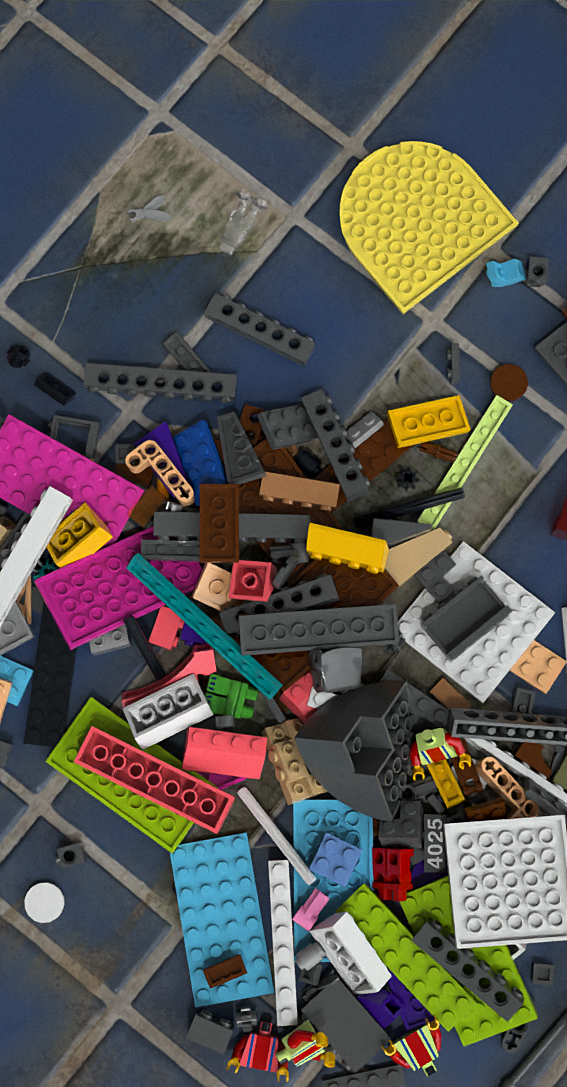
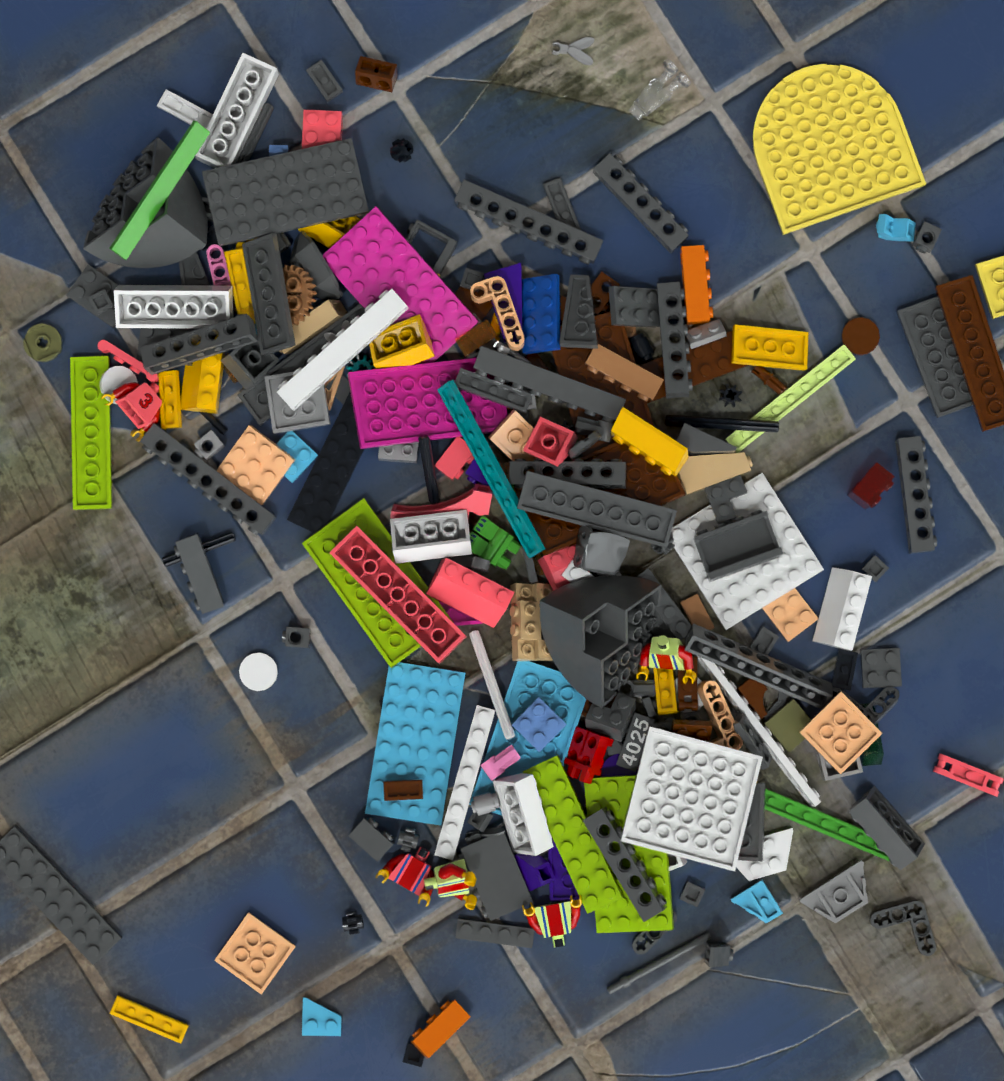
camera: 15 degrees right, 5 degrees up
(55, 389) = (426, 193): black plate -> none
(219, 523) = (538, 378): reddish brown plate -> none
(336, 384) = (695, 284): none -> orange brick
(453, 372) = (816, 293): dark grey plate -> none

